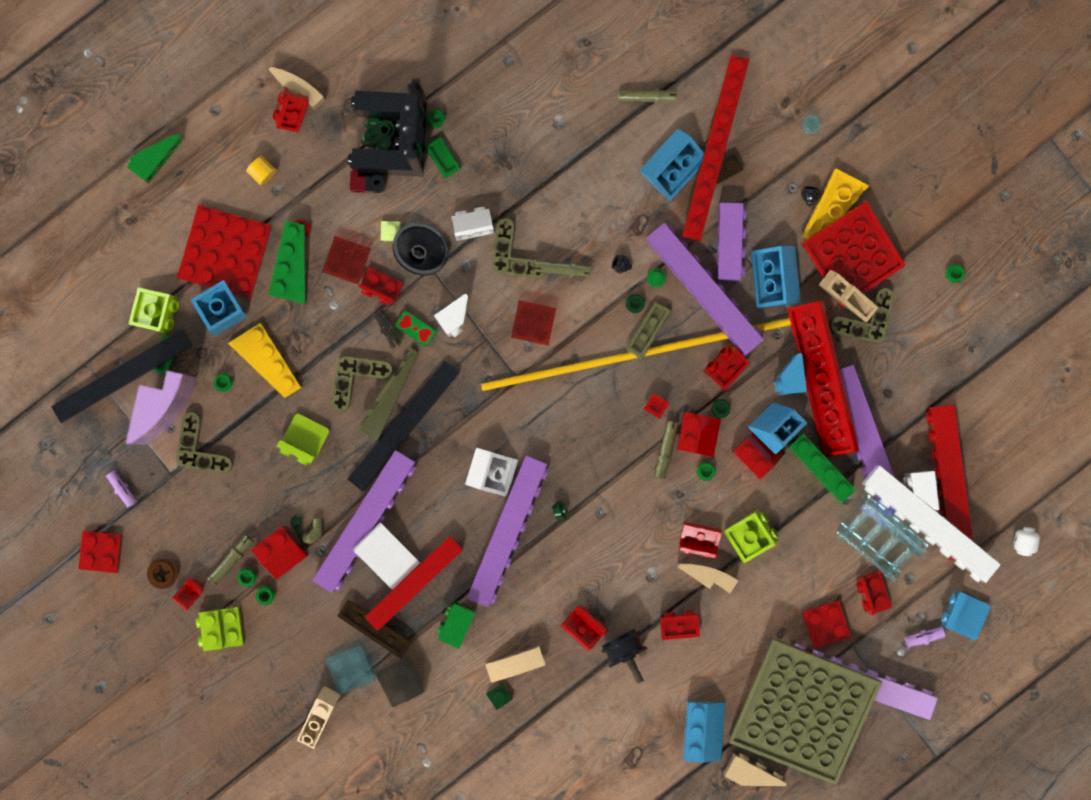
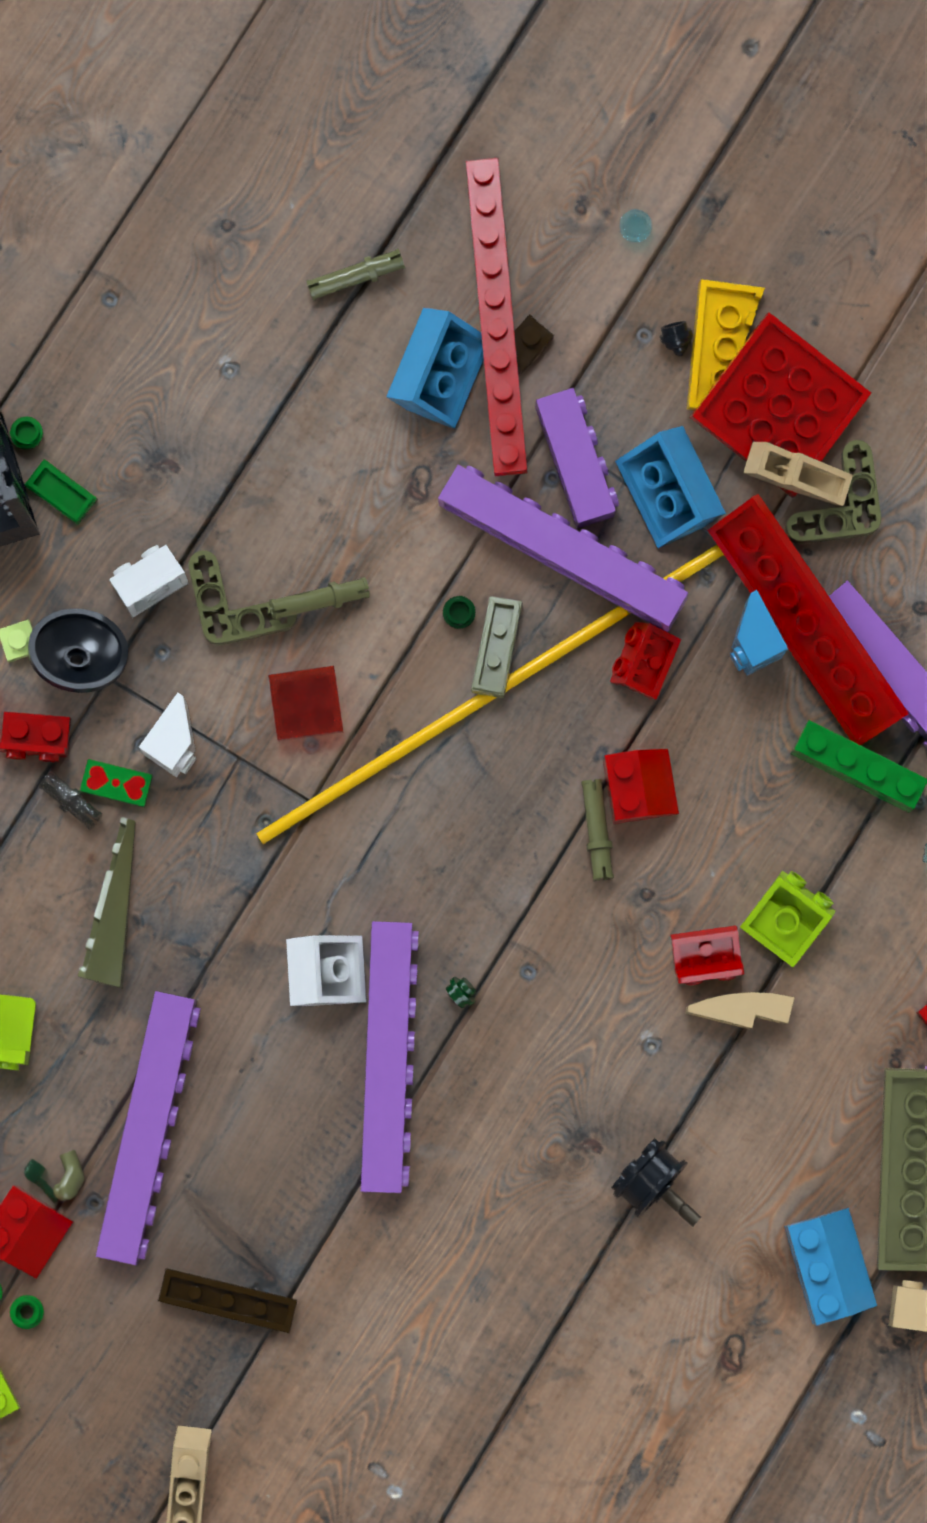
camera: 20 degrees left, 5 degrees down
(349, 375) = (34, 899): olive beam -> none
(350, 669) = (211, 1383): clear light blue plate -> none
(386, 556) = (203, 1171): white tile -> none
(401, 681) = (302, 1371): clear smoke slope -> none
(403, 426) = (154, 949): black tile -> none
(413, 583) = (265, 1200): red slope -> none
(458, 621) = (359, 1240): green brick -> none
(499, 696) = (474, 1335): dark green plate -> none
(515, 664) = (481, 1271): tan slope -> none
(583, 627) = (571, 1169): red bracket -> none
(621, 264) = (413, 557): black plate -> none
(656, 278) = (478, 558): green plate -> none
(656, 406) = (555, 763): red tile -> none
(679, 626) = (726, 1108): red bracket -> none
(706, 471) = (675, 840): green plate -> none
(720, 408) = (661, 730): dark green plate -> none
(756, 456) = (748, 779): red slope -> none
(777, 426) = (763, 724): dark azure slope -> none

